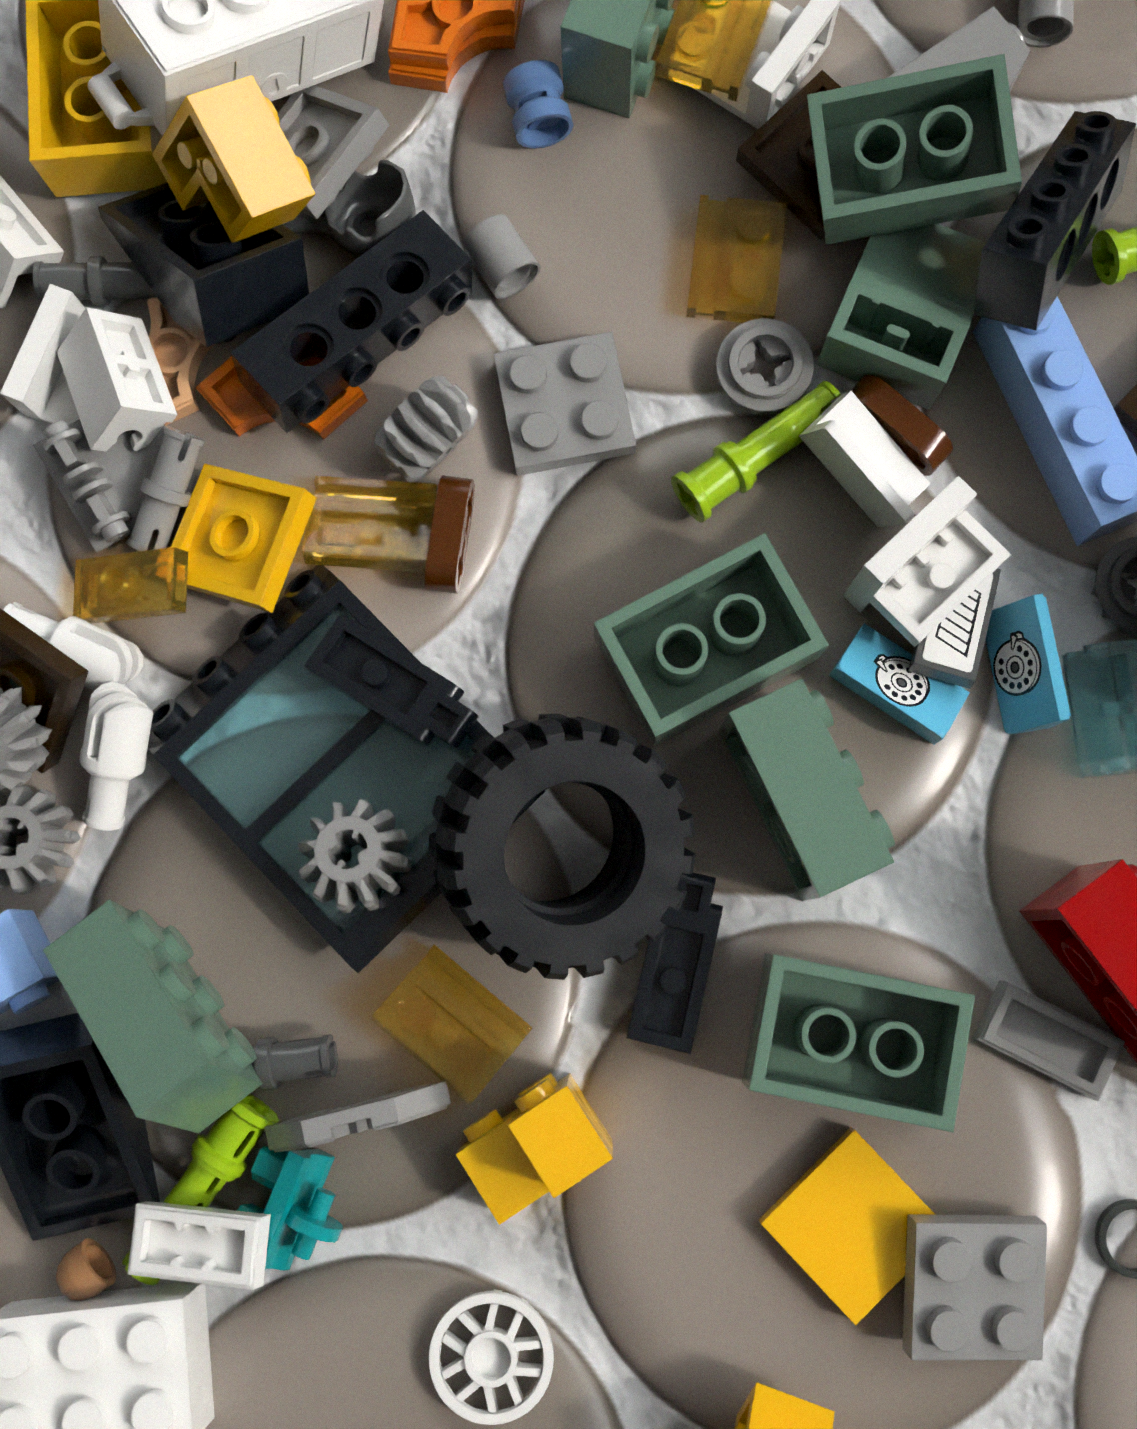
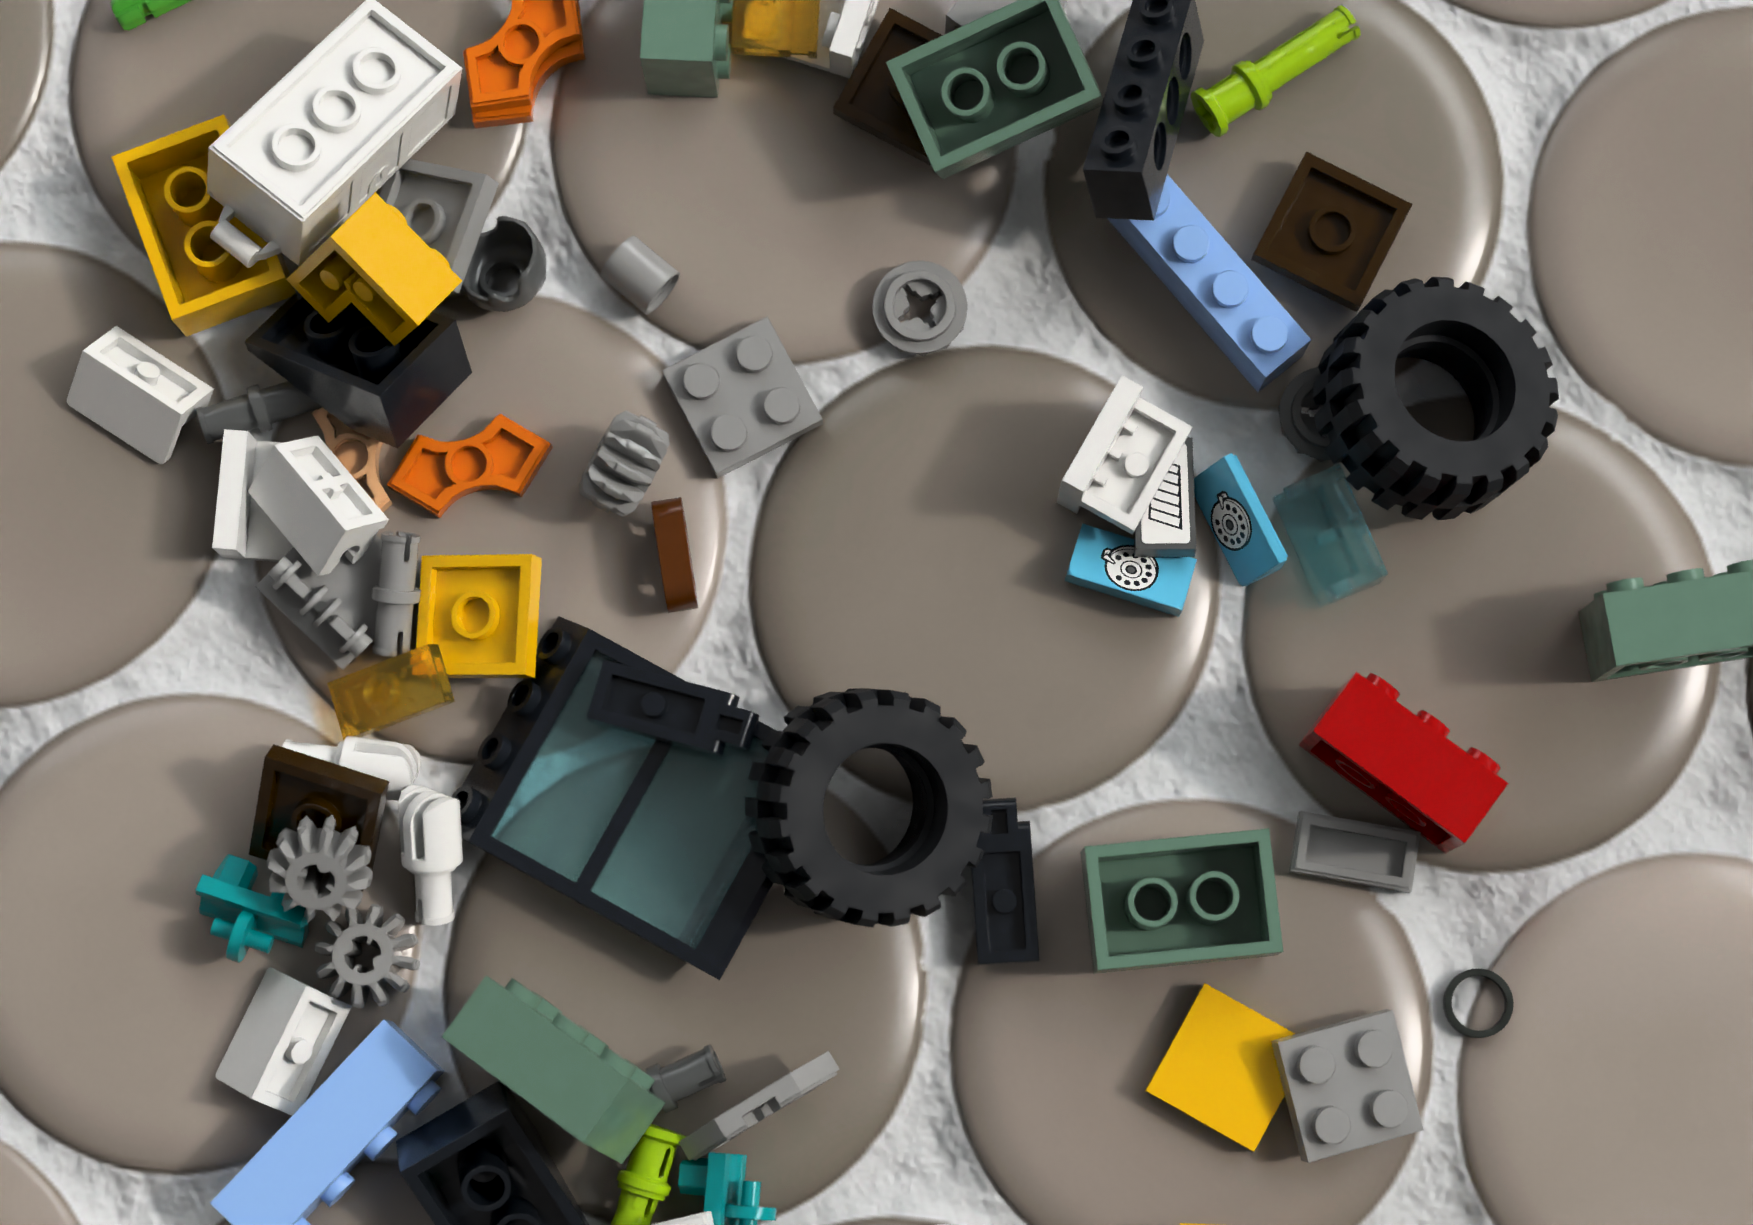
camera: 25 degrees left, 0 degrees up
(333, 850) = (668, 888): light grey gear -> none
(364, 291) = (560, 299): black brick -> none
(370, 524) = (598, 566): clear yellow plate -> none
(451, 1024) = (816, 1001): clear yellow plate -> none
(535, 95) = (629, 116): medium blue wheel -> none
(535, 1148) = (926, 1081): yellow brick -> none
(709, 639) = (944, 584): sand green brick -> none
(736, 259) = (862, 211): clear yellow plate -> none
(736, 464) = (921, 411): lime pin -> none
(806, 790) = (1071, 694): sand green brick -> none
(865, 461) = (1039, 373): white panel -> none
(907, 311) = (1035, 220): sand green slope -> none
(909, 428) = (1059, 330): reddish brown beam -> none

